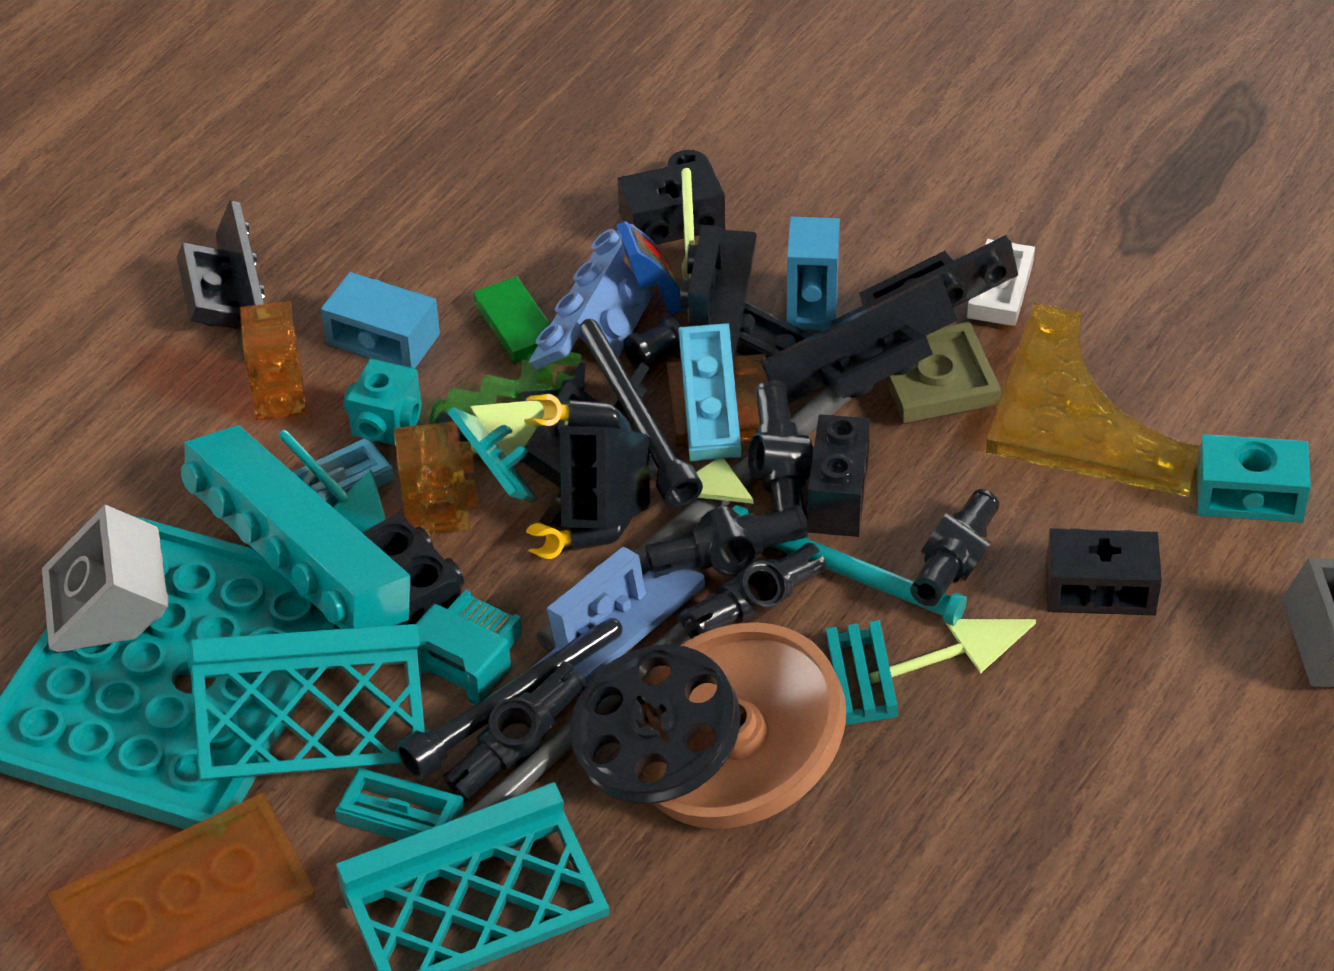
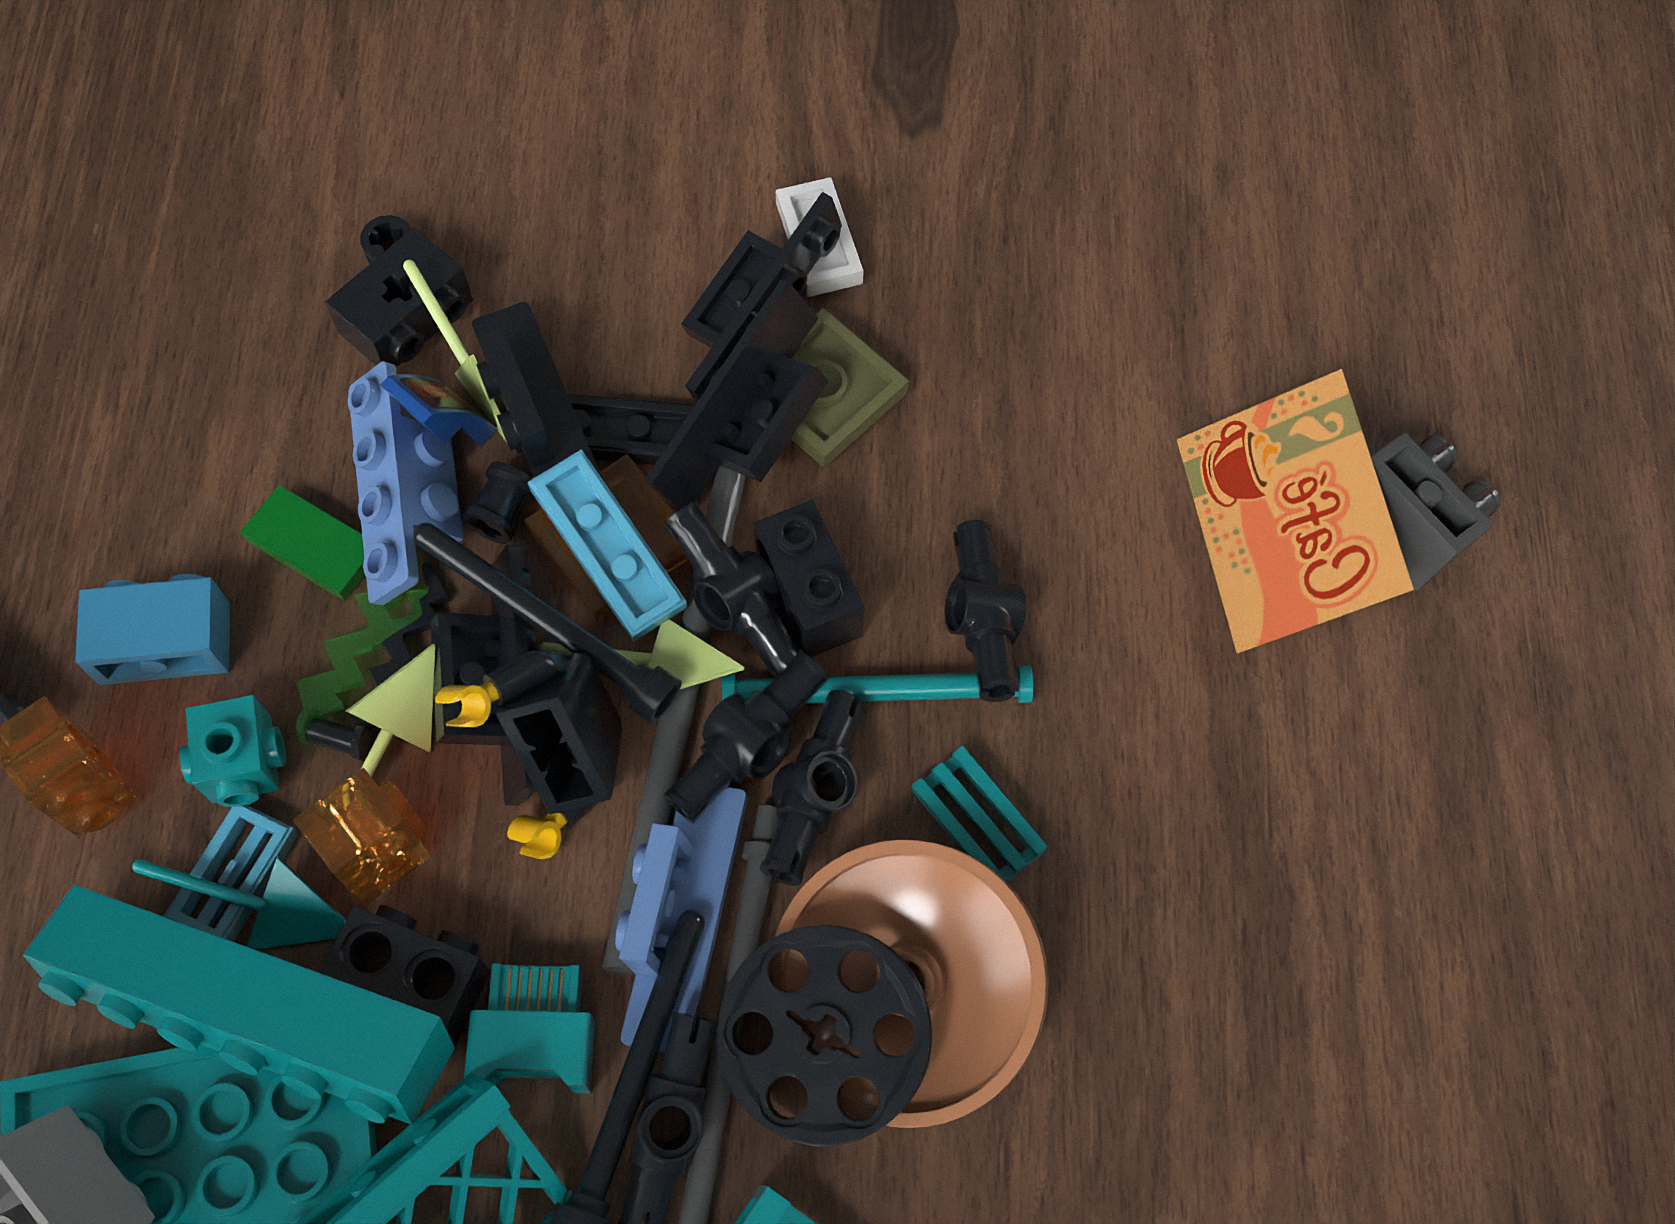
camera: 35 degrees left, 20 degrees up
(493, 456) = (422, 772): teal piece -> none
(812, 272) = (627, 328): dark azure brick -> none
(978, 638) = (1068, 703): yellowish green piece -> none
(1065, 422) = (981, 382): clear yellow plate -> none
(1103, 571) = (1172, 555): black brick -> none
(1235, 583) = (1293, 513): none -> clear orange sticker
(1253, 478) = (1196, 389): teal brick -> none

